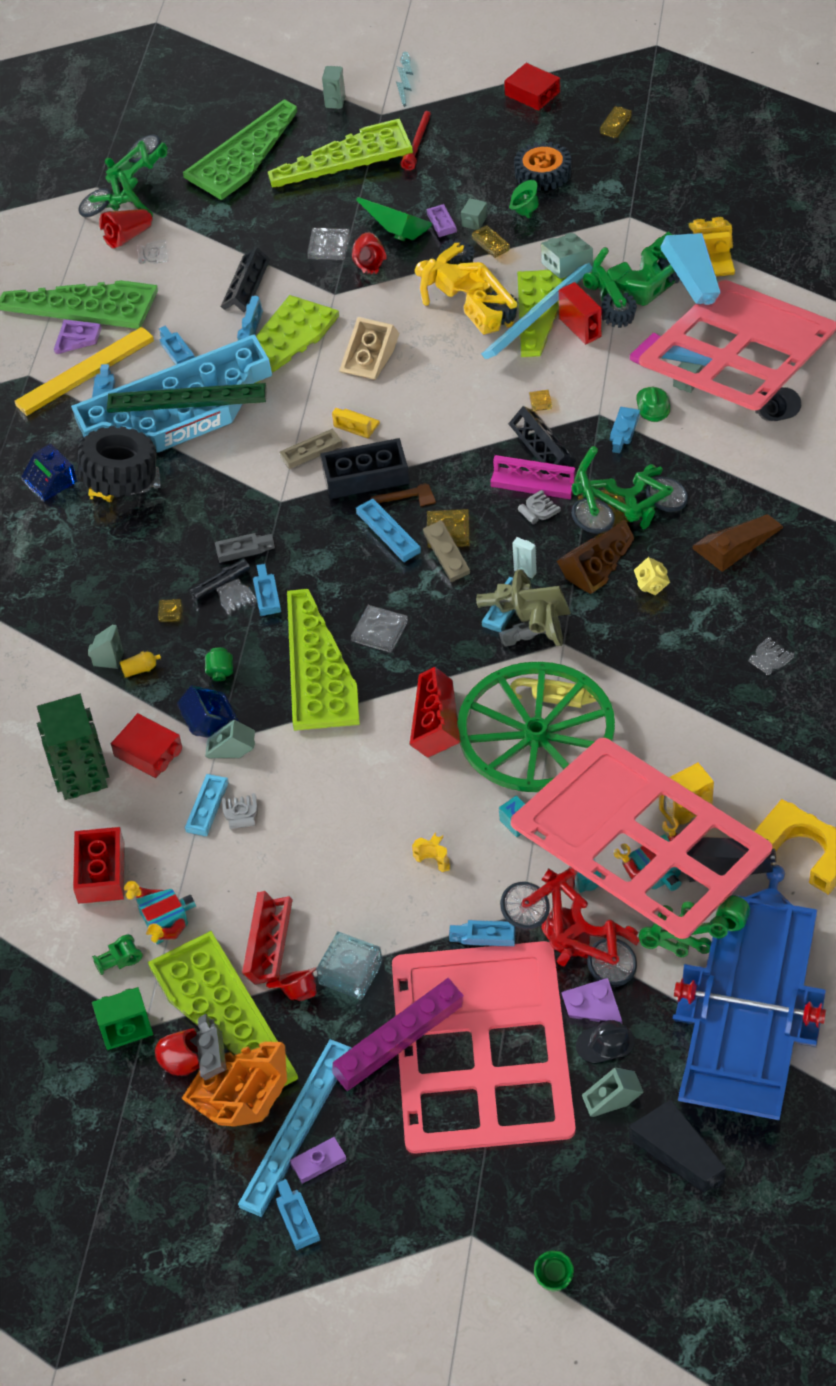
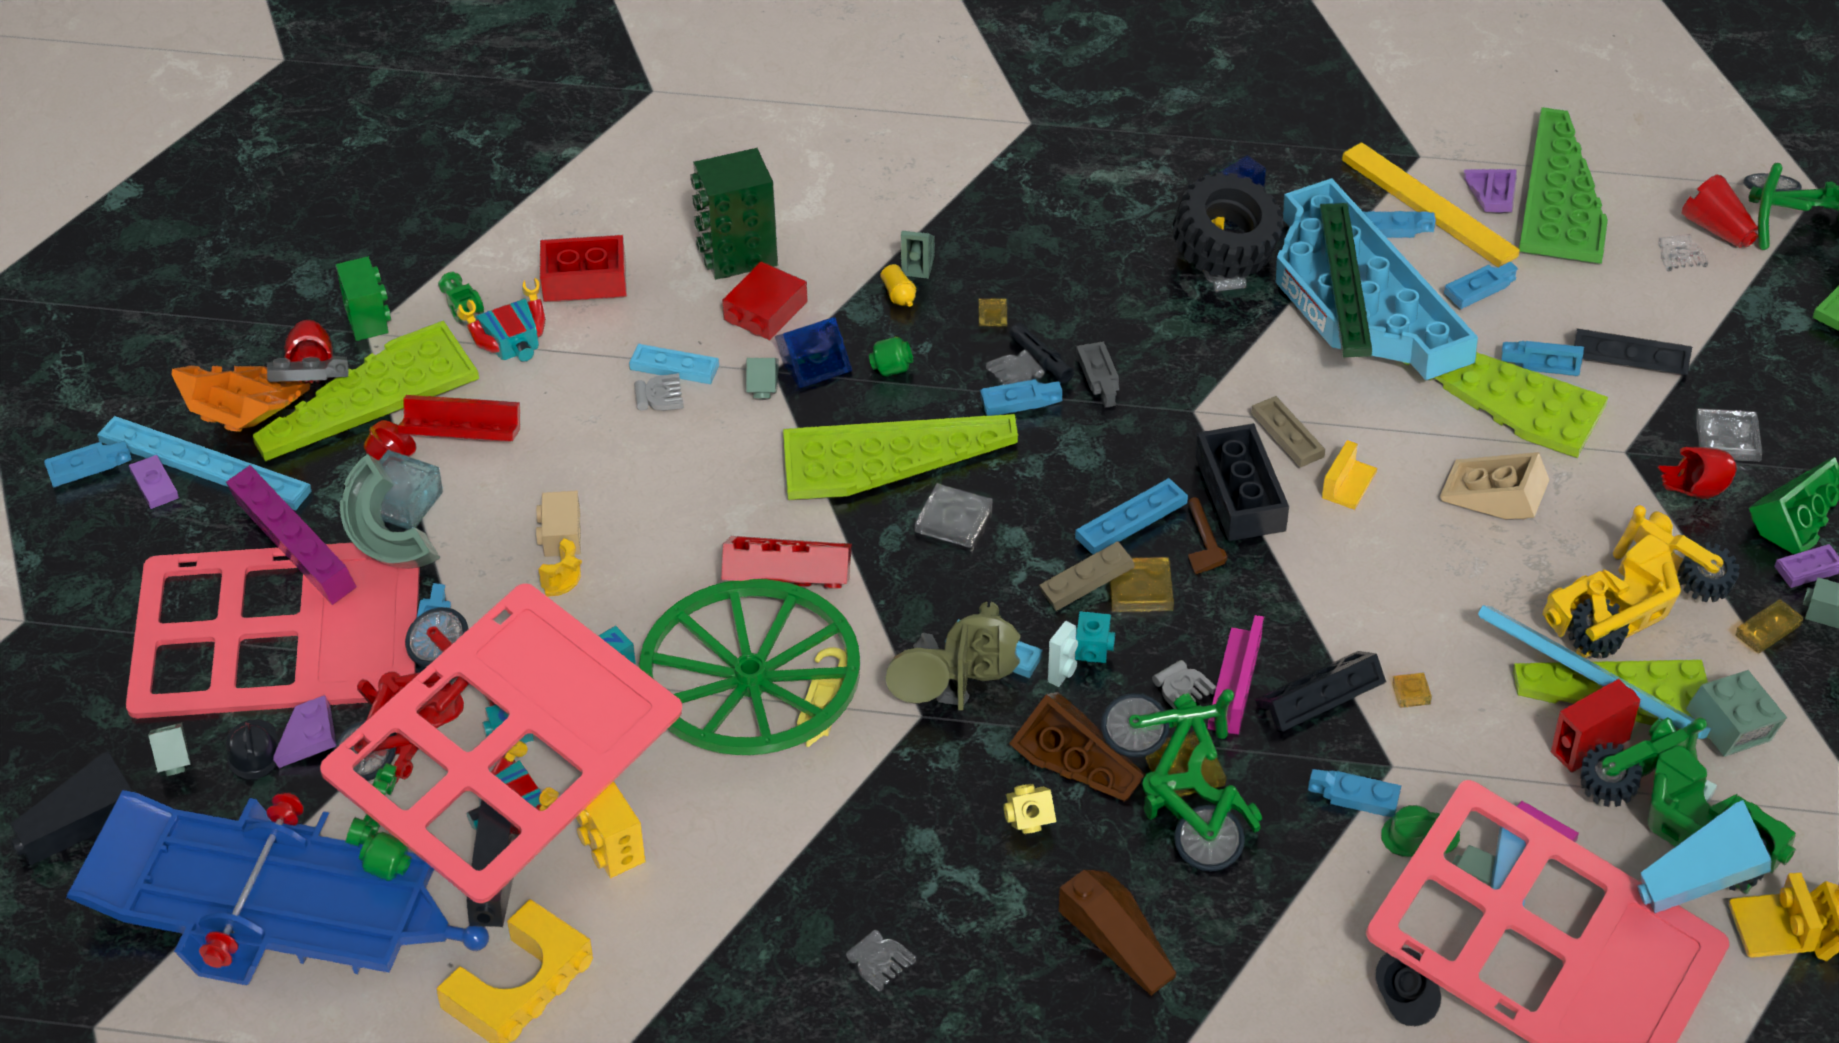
camera: 85 degrees right, 5 degrees down
(384, 859) = (559, 520): none -> tan brick
(393, 974) = (364, 525): none -> sand green brick
(502, 545) = (1094, 637): none -> teal brick

